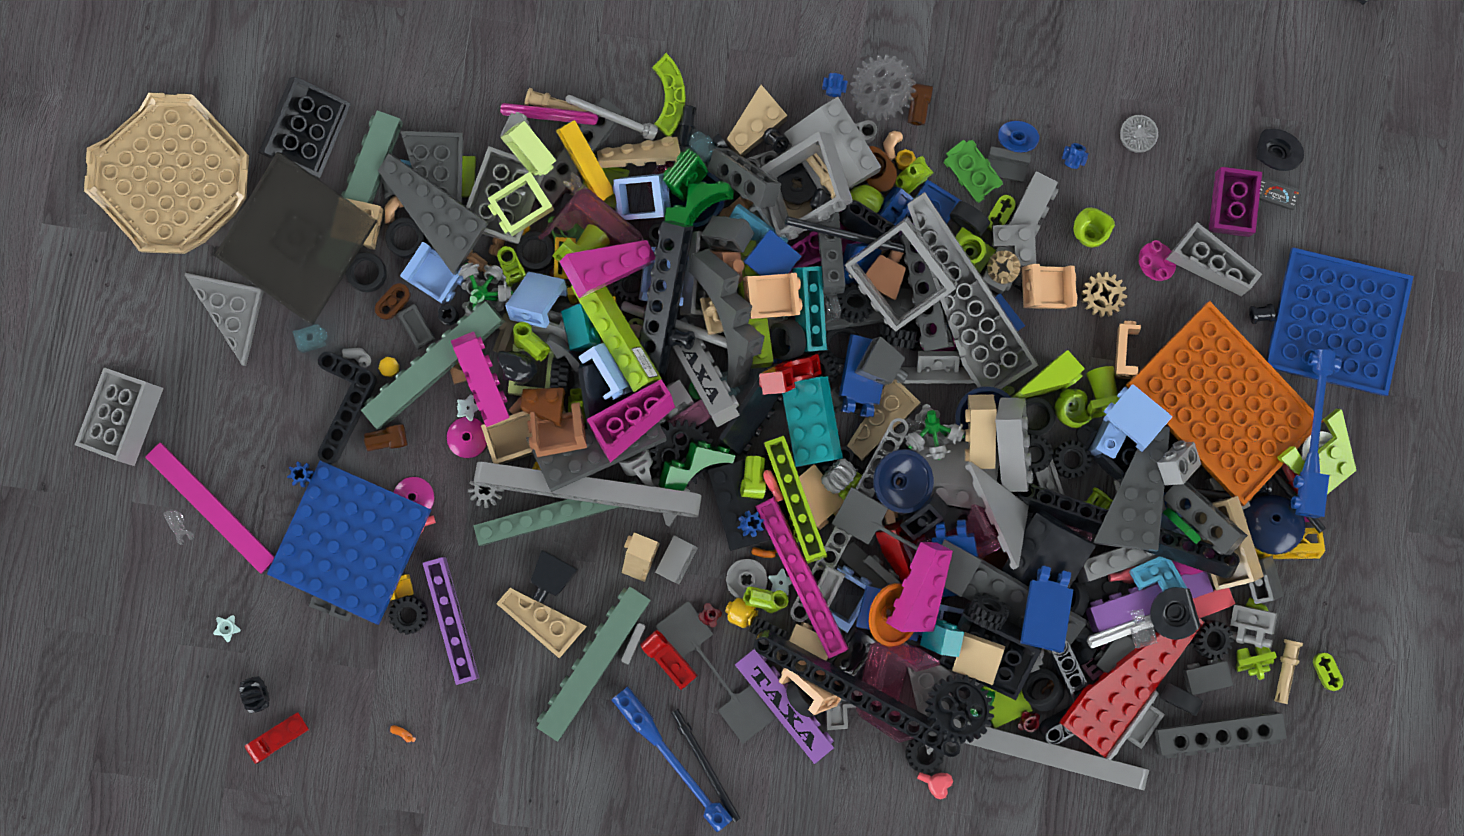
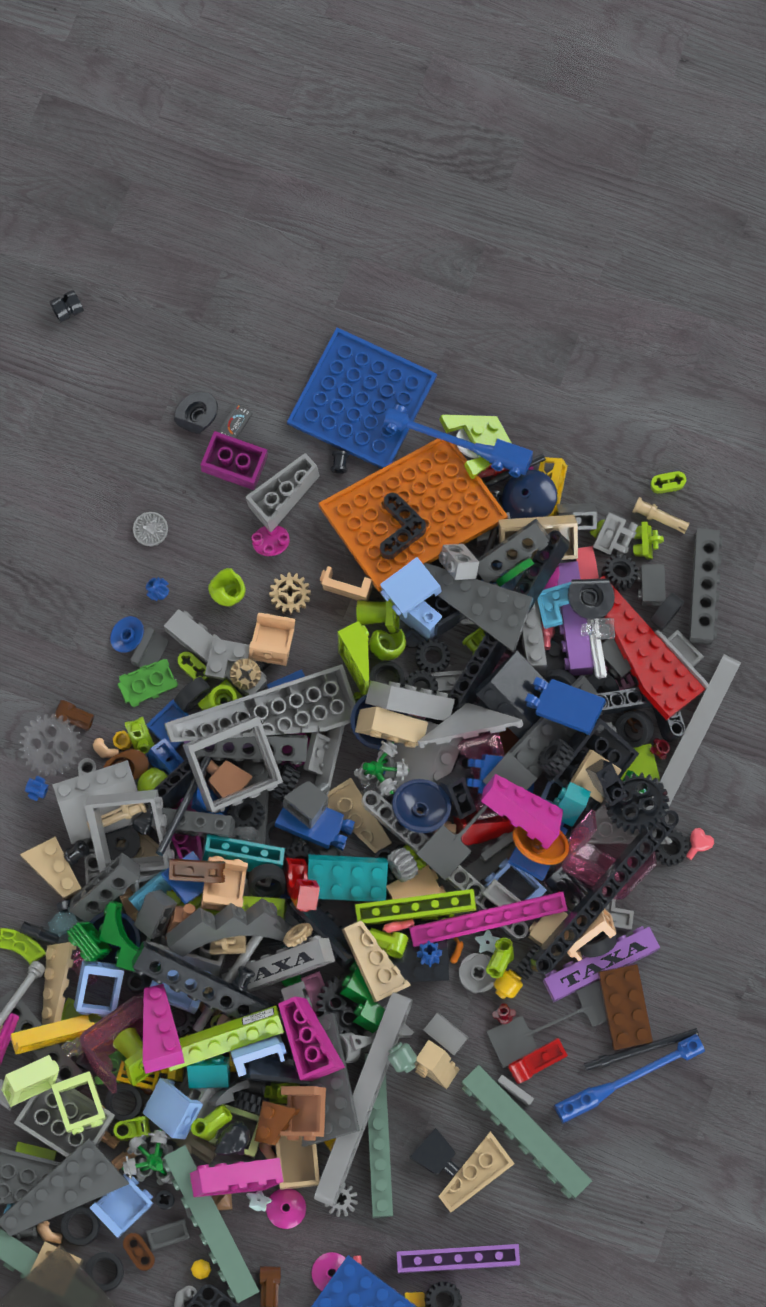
camera: 80 degrees left, 10 degrees down
(633, 519) = (402, 1057): none -> sand green head
(726, 469) = (375, 966): none -> tan wing
(735, 382) = (297, 934): none -> tan gear
(744, 739) = (625, 1006): none -> reddish brown plate
(778, 263) = (196, 870): none -> reddish brown plate
(974, 671) = (606, 781): none -> black slope
(1207, 400) = (407, 524): none -> black beam

